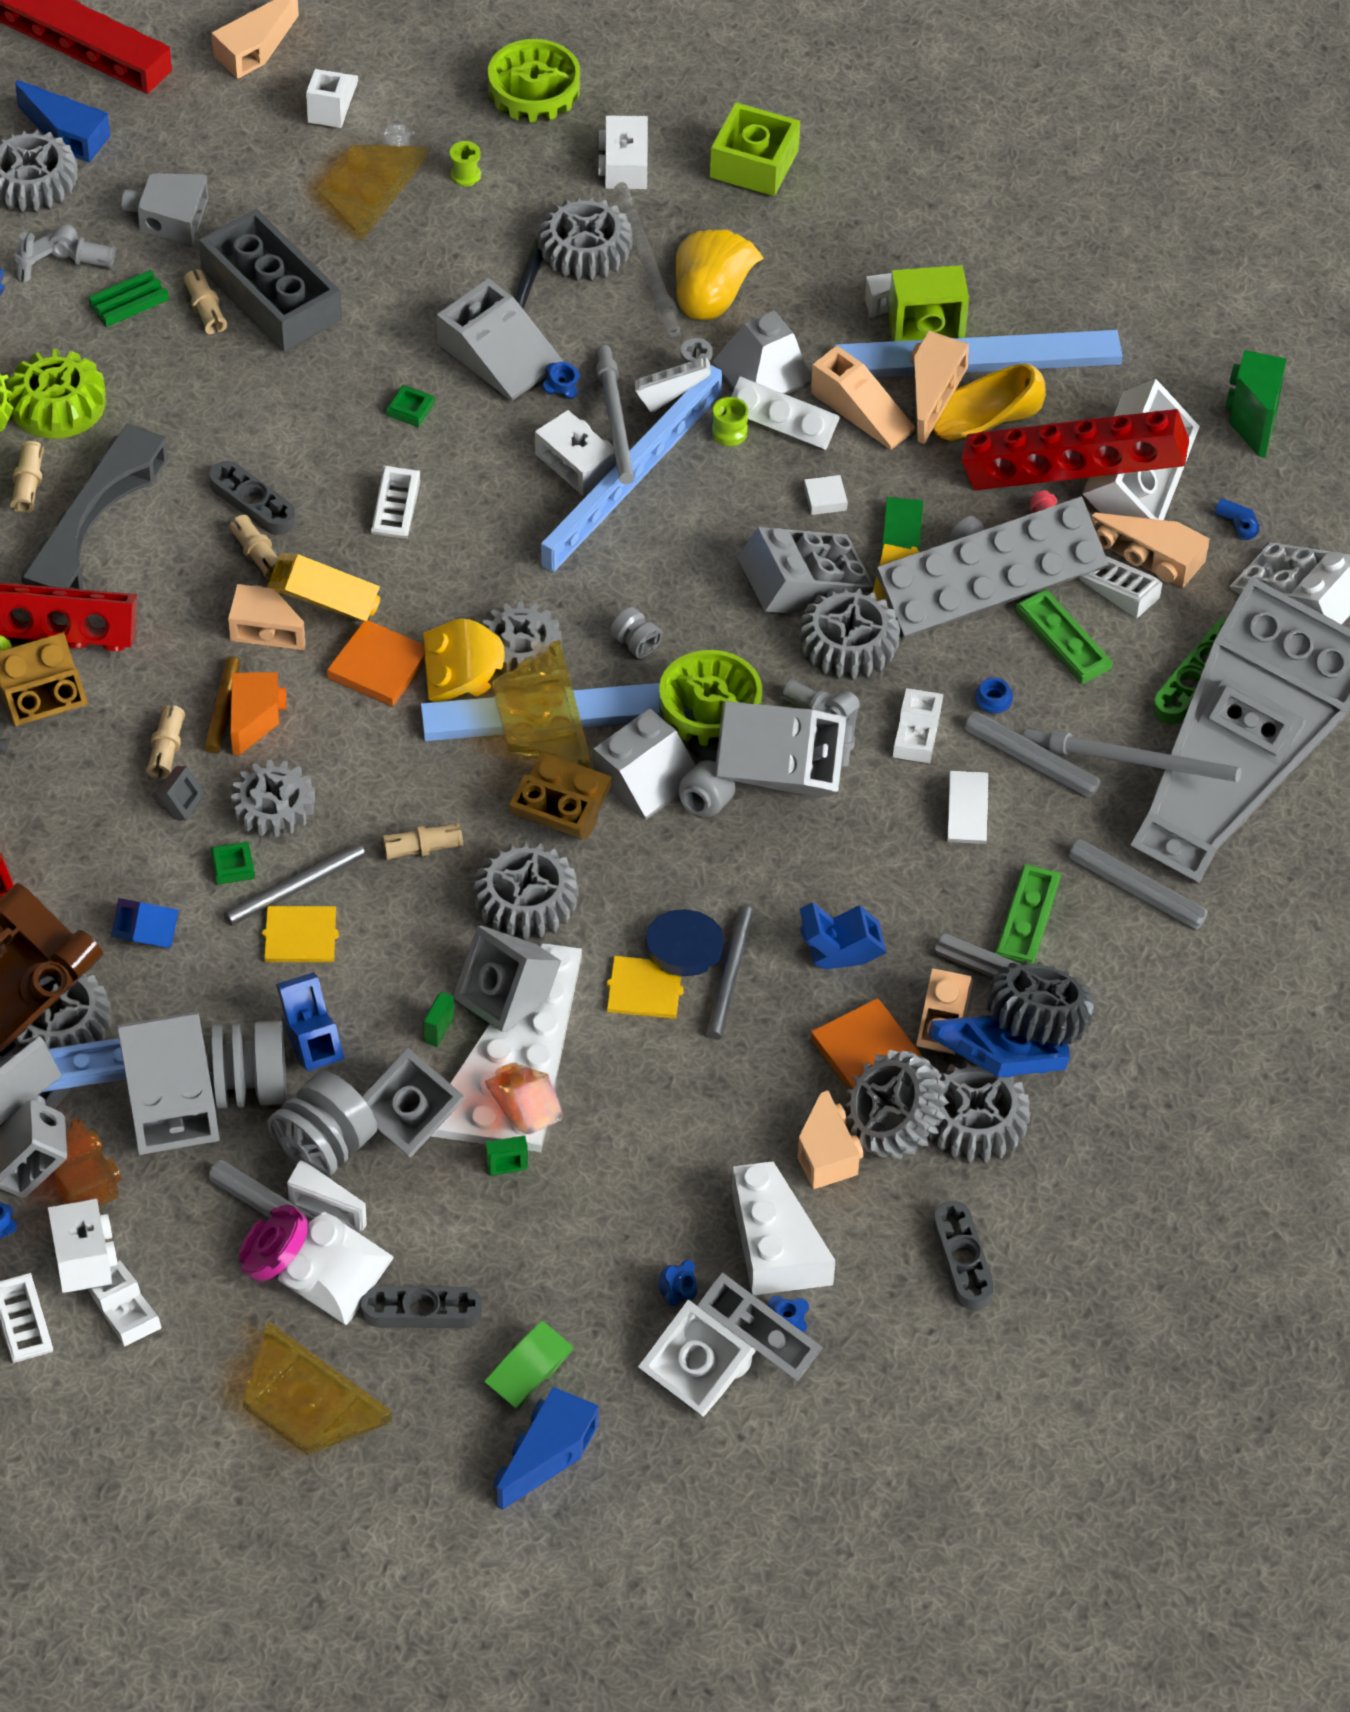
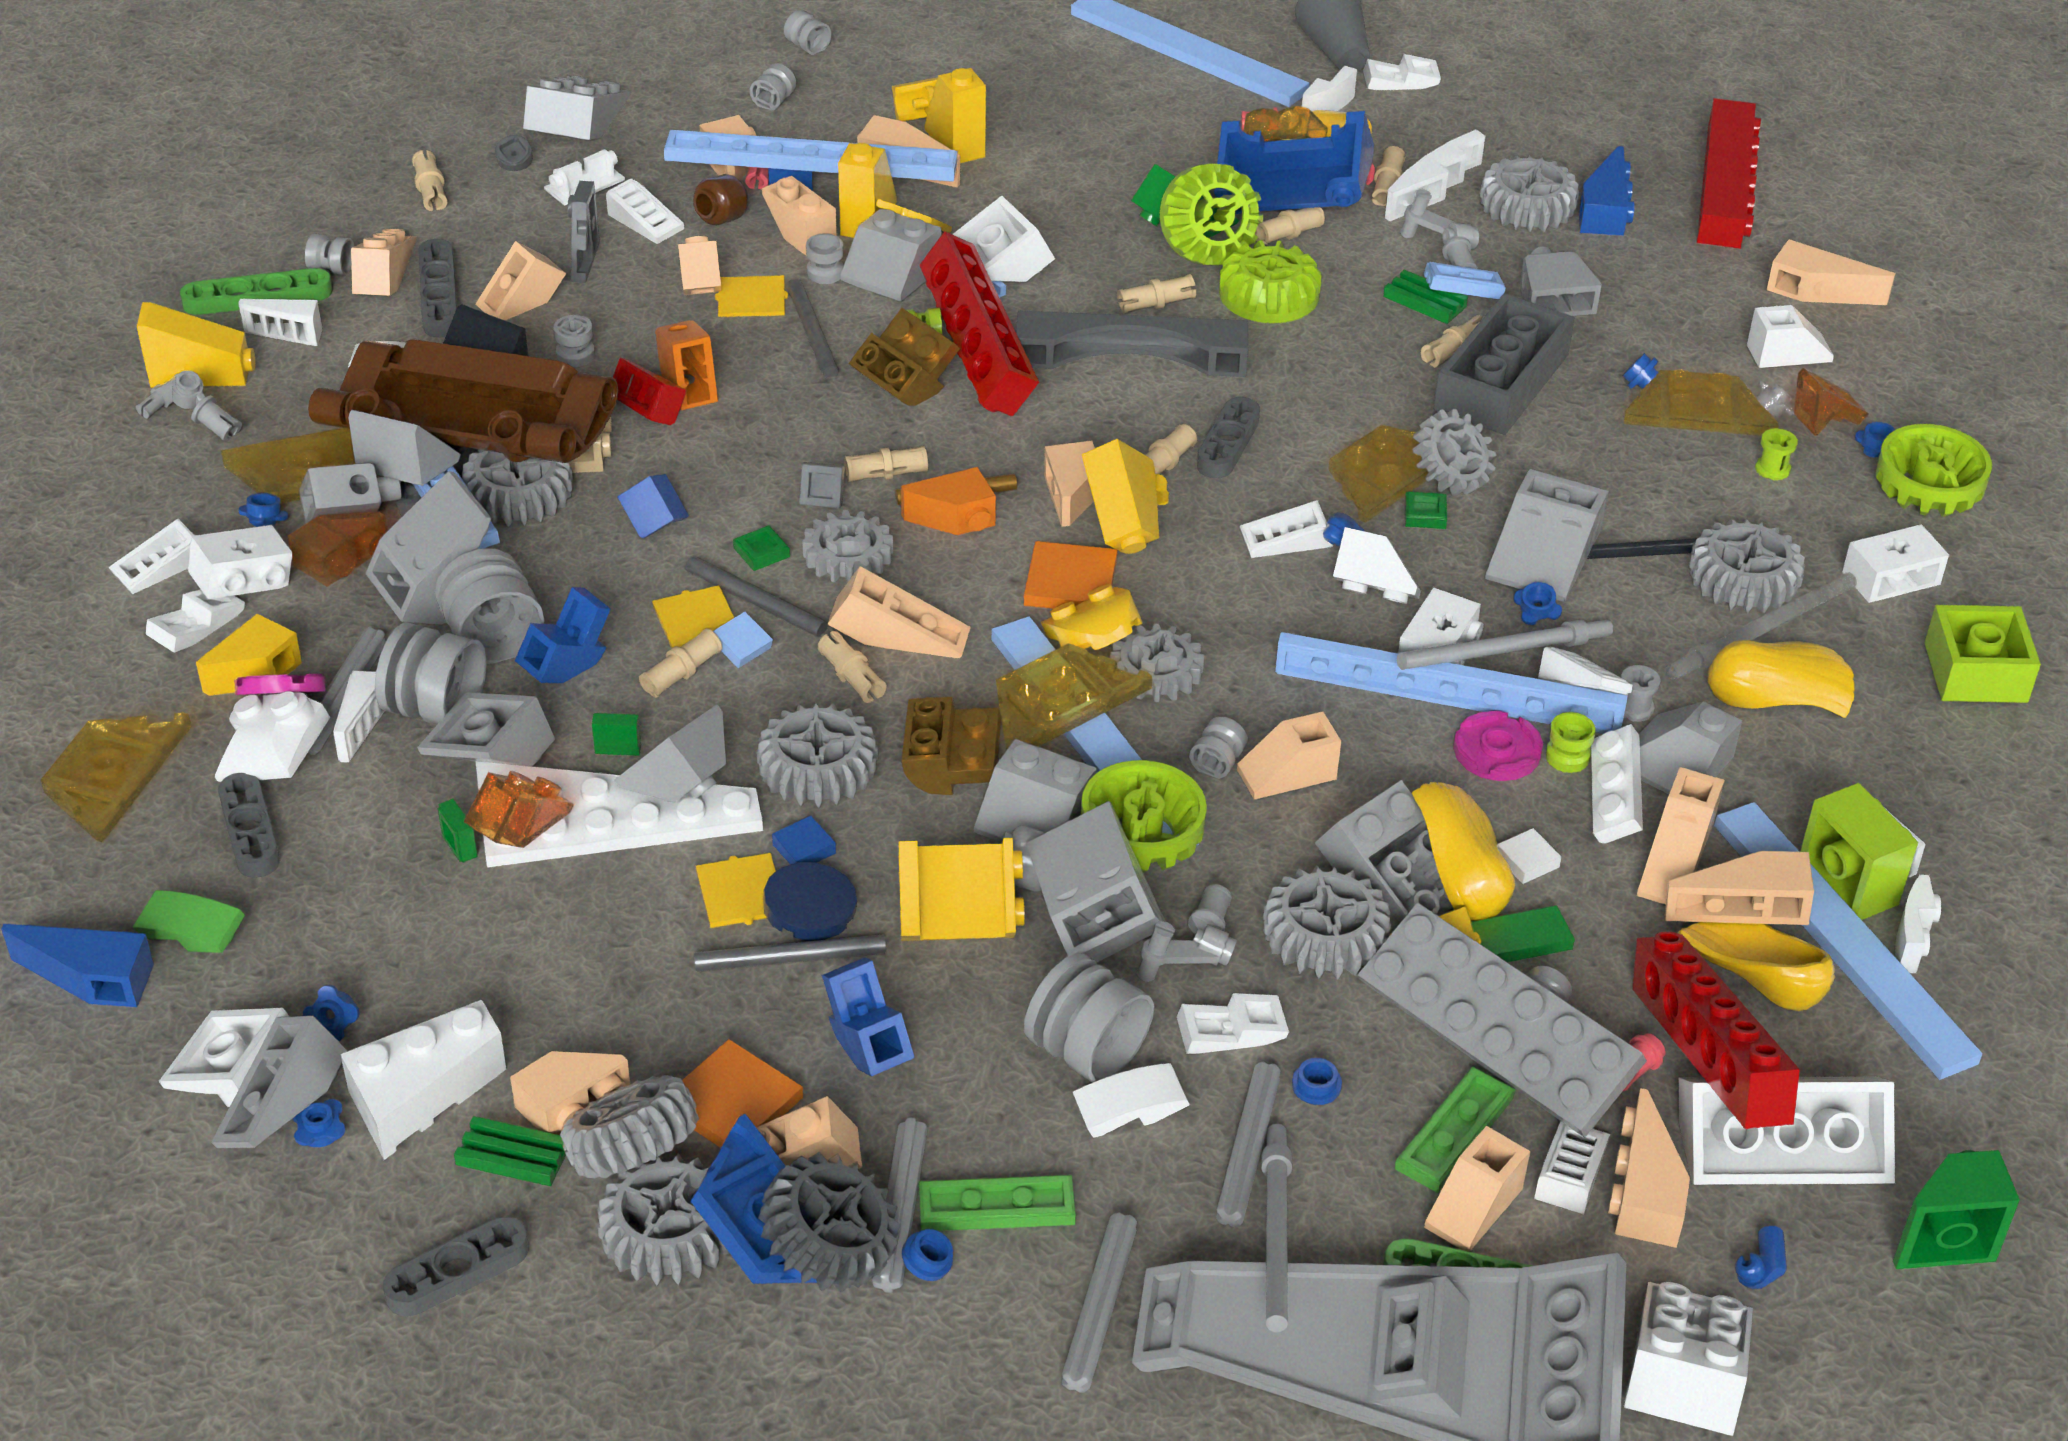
camera: 70 degrees right, 10 degrees down
(136, 263) = (1464, 280): none -> light blue tile
(211, 1261) = (251, 650): none -> yellow slope
(316, 200) = (1641, 372): none -> blue plate
(344, 408) = (1378, 469): none -> clear yellow wing
(353, 906) = (743, 639): none -> light blue tile
(364, 955) = (680, 662): none -> tan pin
(369, 356) = (1454, 452): none -> light grey gear
(384, 793) = (894, 619): none -> light nougat slope
(422, 109) = (1821, 401): none -> clear orange slope
(428, 462) = (1336, 526): none -> blue arm
(472, 96) = (1873, 437): none -> blue plate
(479, 459) = (1373, 563): none -> white slope
(615, 930) = (804, 842): none -> blue tile
(676, 590) = (1292, 757): none -> light nougat slope
(701, 477) = (1498, 757): none -> dark pink tile
(733, 837) = (959, 891): none -> yellow panel
(847, 523) = (1465, 850): none -> yellow hair
(879, 1174) = (514, 1143): none -> green tile
(903, 797) = (1088, 1017): none -> light grey wheel
(993, 314) = (1914, 928): none -> white slope
(1067, 960) = (928, 1254): none -> blue plate
(1136, 638) = (1478, 1189): none -> light nougat slope

